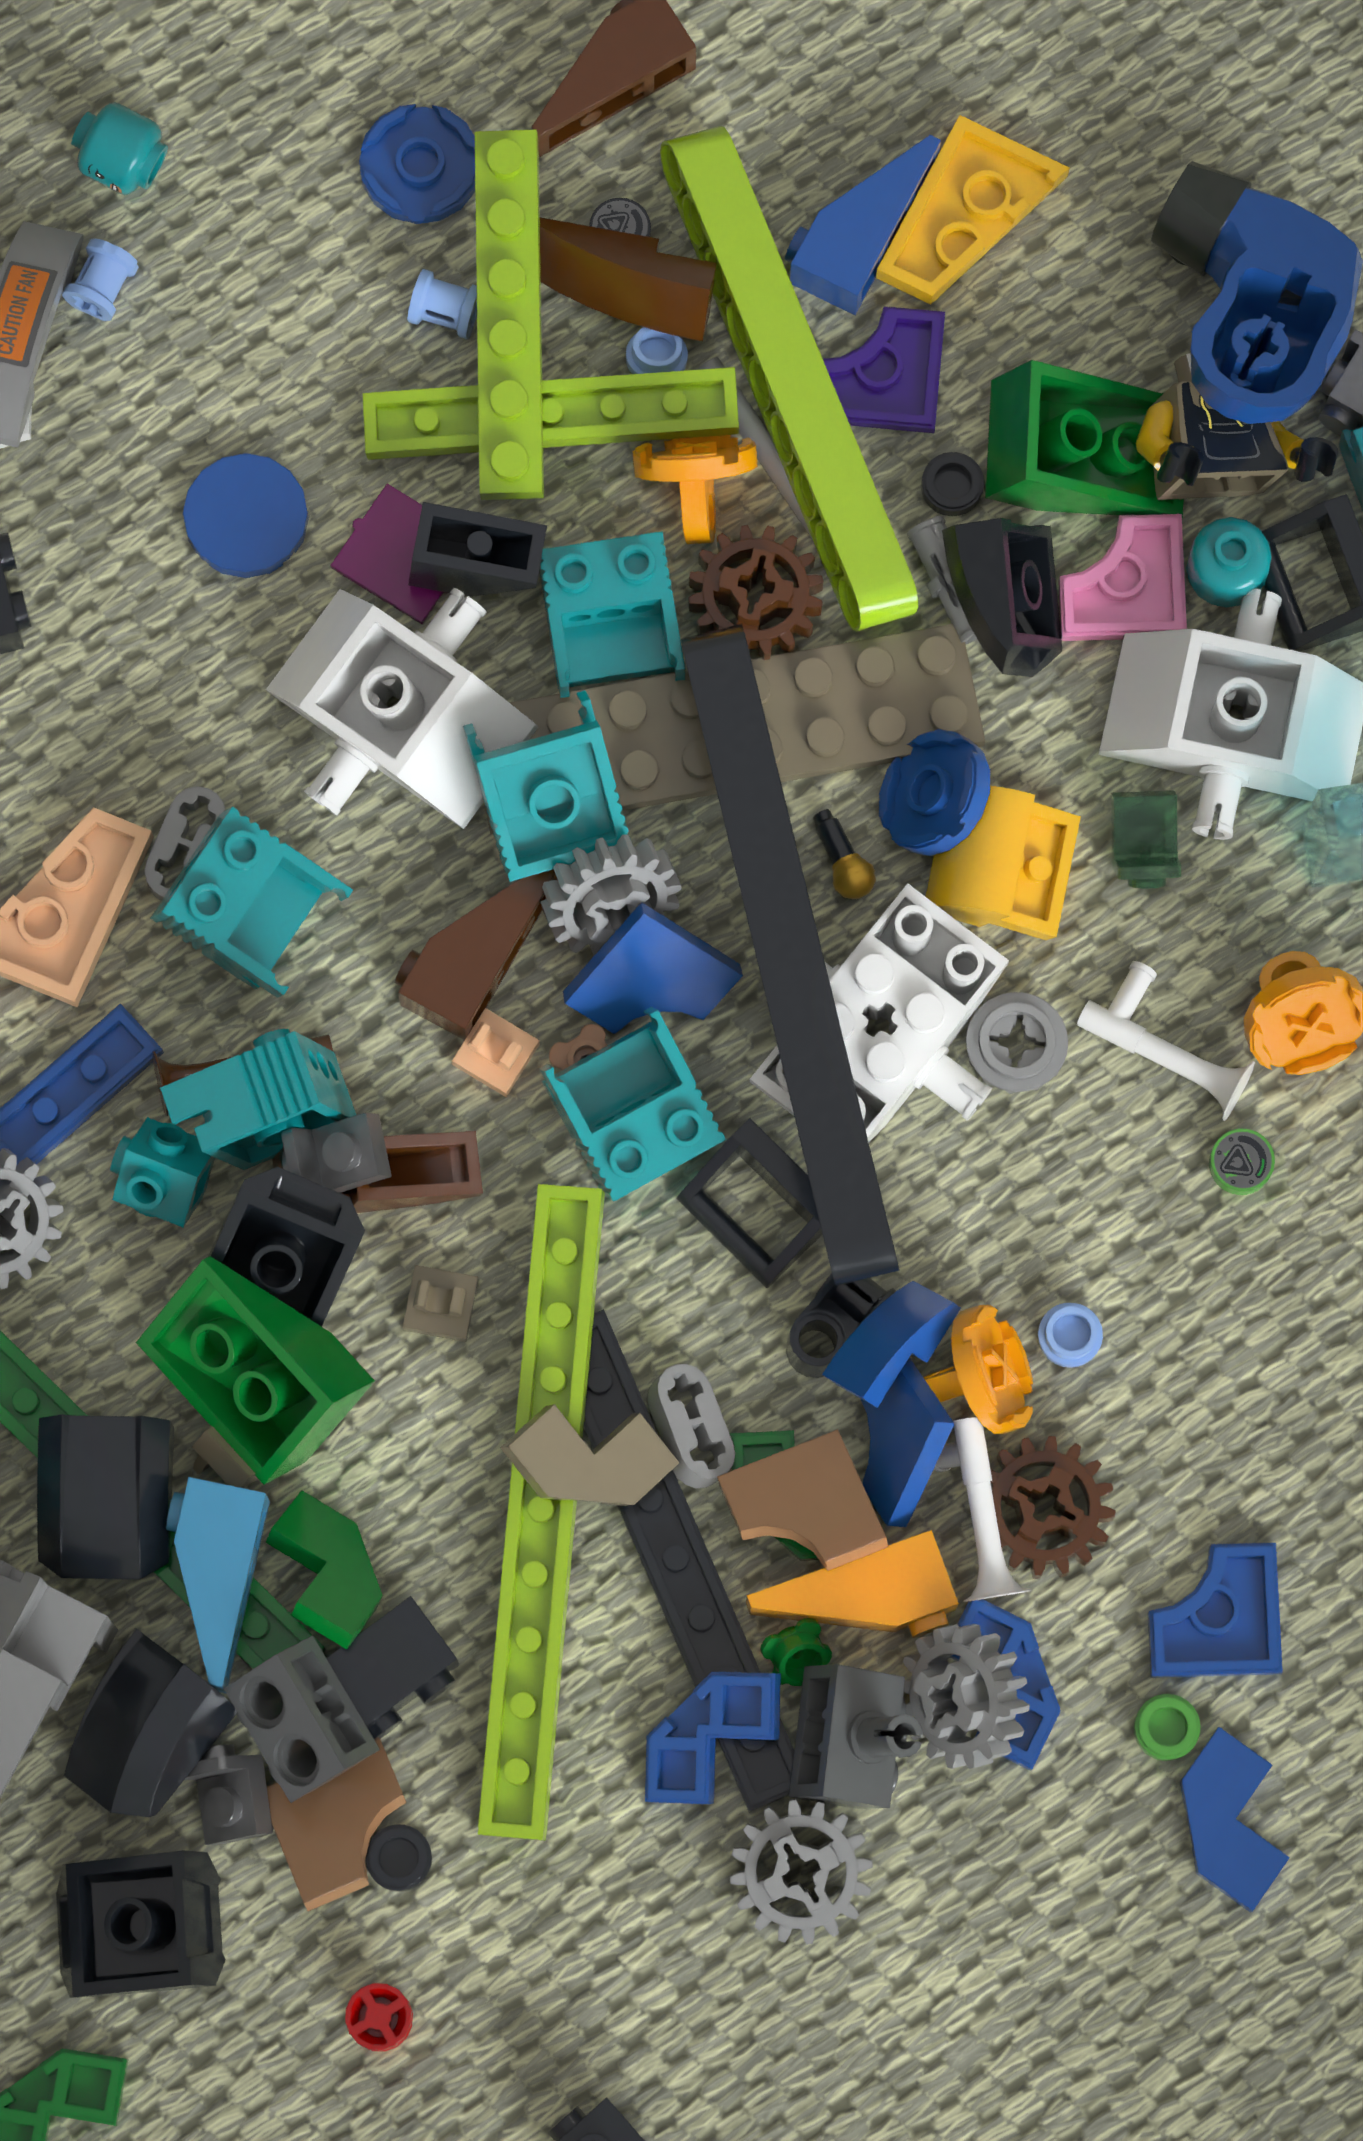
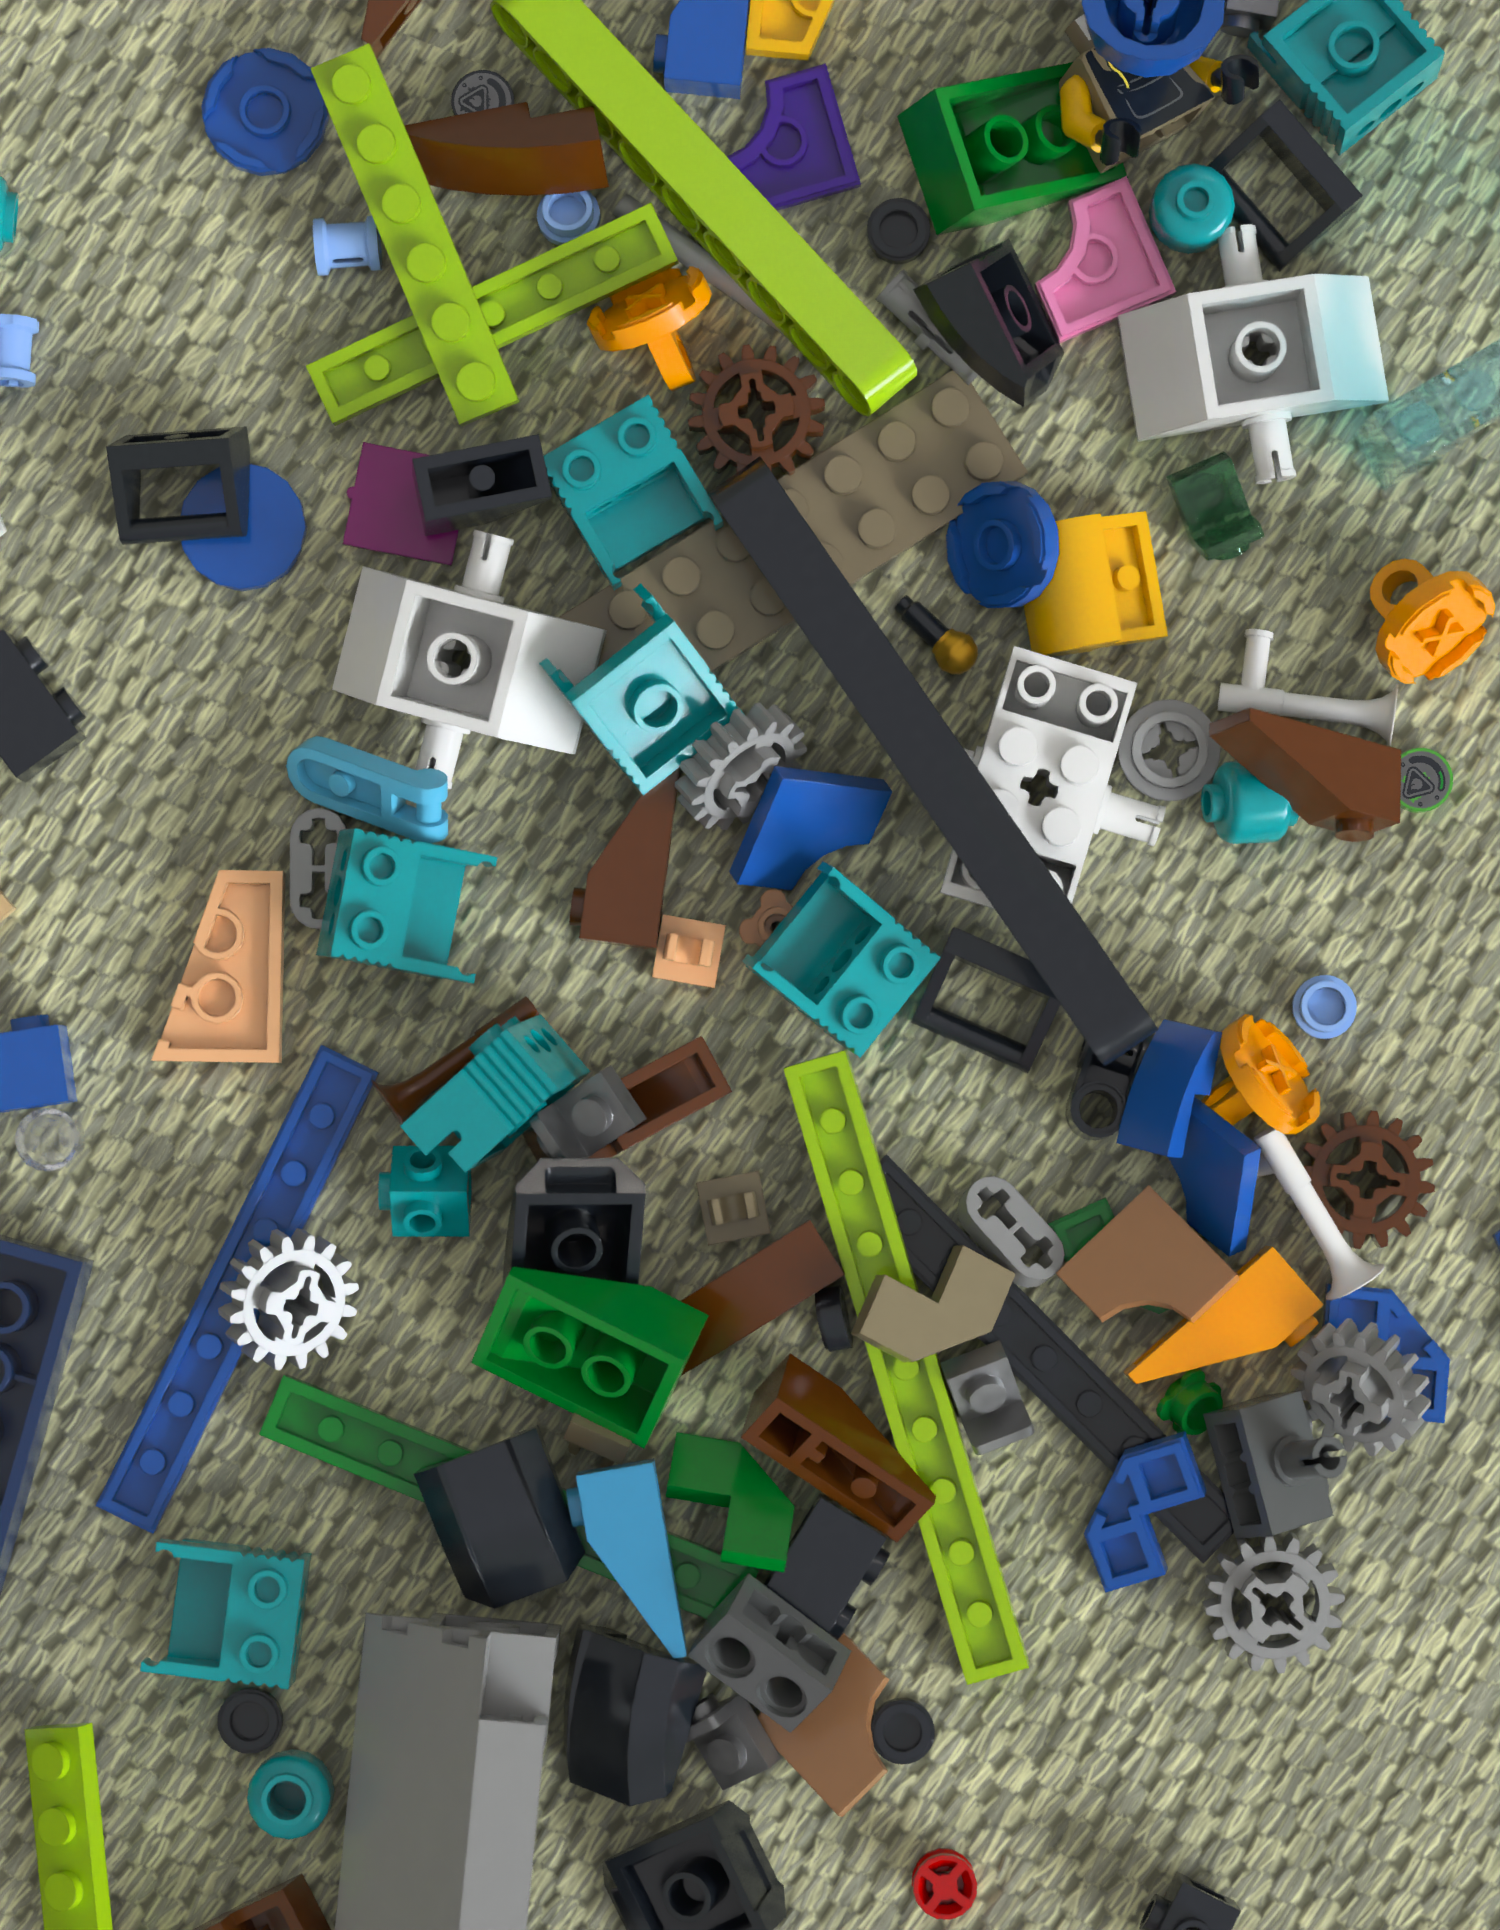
camera: 20 degrees left, 10 degrees up
(159, 425) = (180, 449): none -> black tile
(263, 785) = (371, 788): none -> medium azure plate
(432, 1386) = (761, 1289): none -> reddish brown slope
(444, 1559) = (835, 1448): none -> reddish brown slope
(491, 1433) = (833, 1318): none -> black tile
(606, 1569) = (987, 1398): none -> flat silver bracket
(1074, 1116) = (1244, 807): none -> teal head
(1145, 1106) = (1320, 772): none -> reddish brown slope

